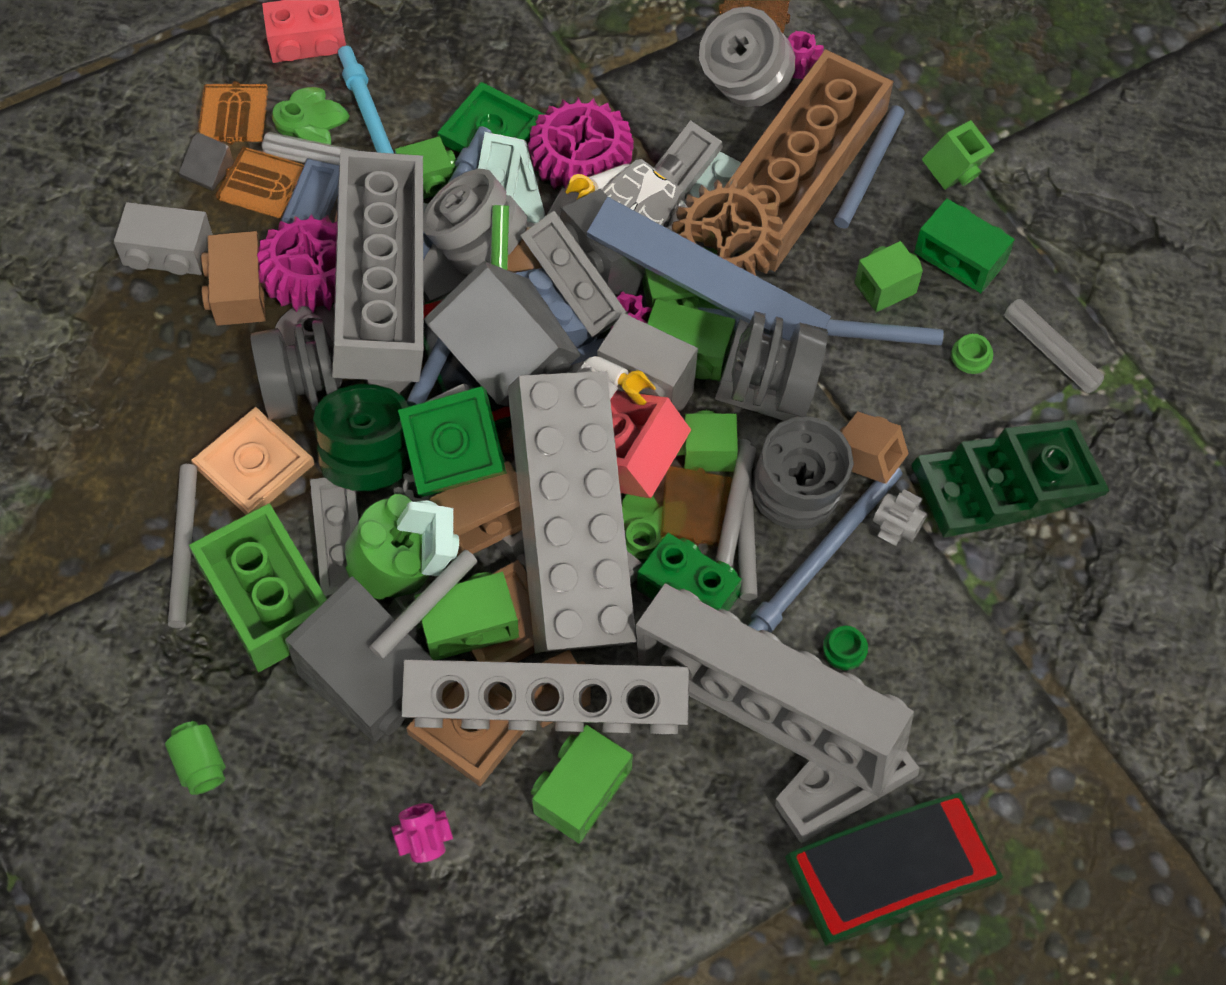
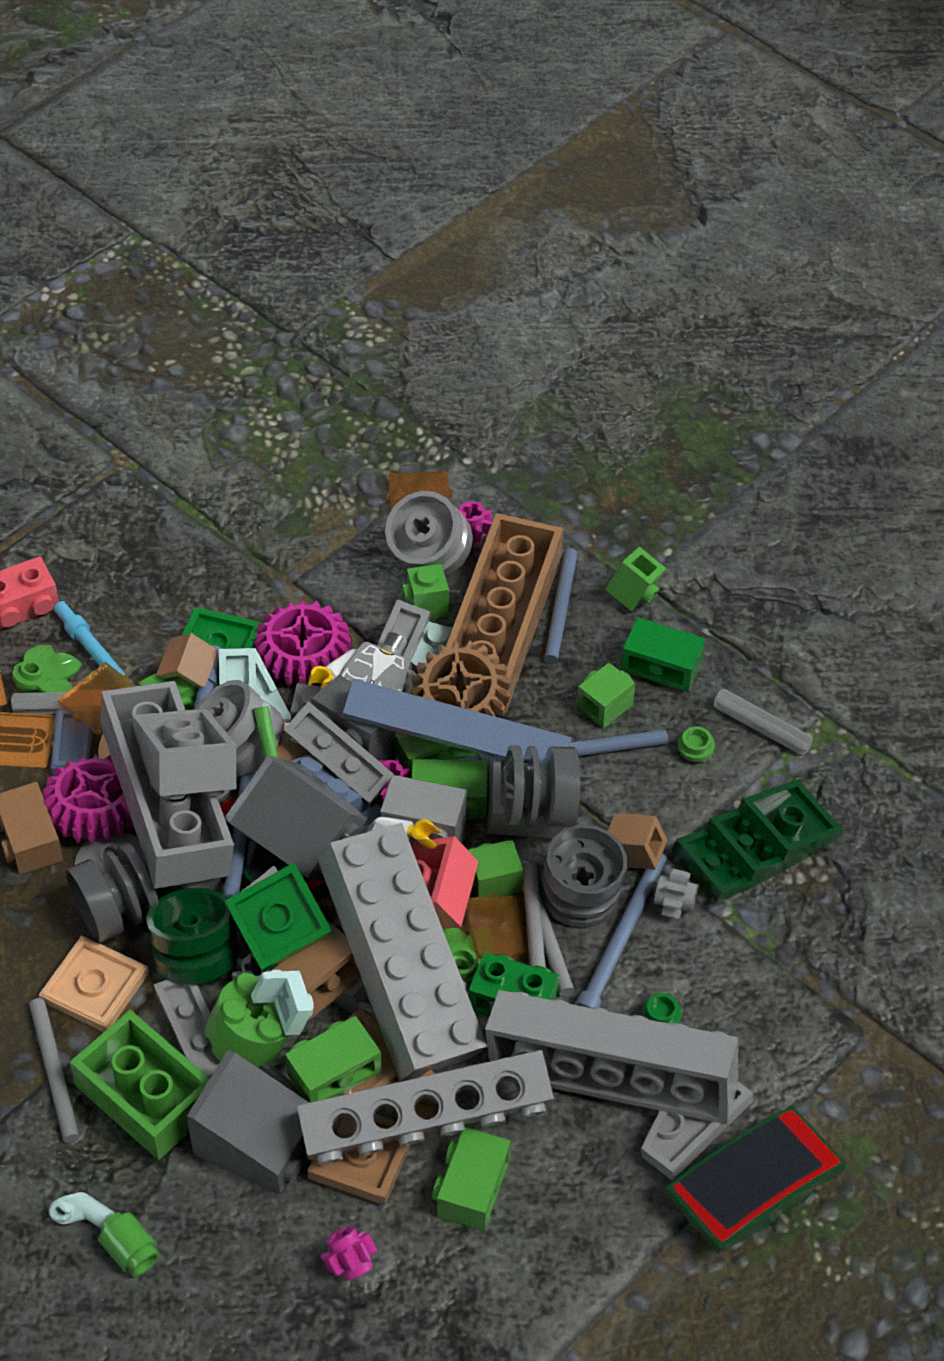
camera: 15 degrees left, 10 degrees down
(158, 703) = (78, 1208): none -> light aqua arm
(359, 138) = (85, 698): none -> clear orange piece
(402, 238) = (186, 753): none -> light grey slope
(423, 604) = (296, 1058): light grey bar -> none
(450, 137) = (189, 659): none -> medium nougat panel
(729, 118) = (427, 590): none -> bright green brick

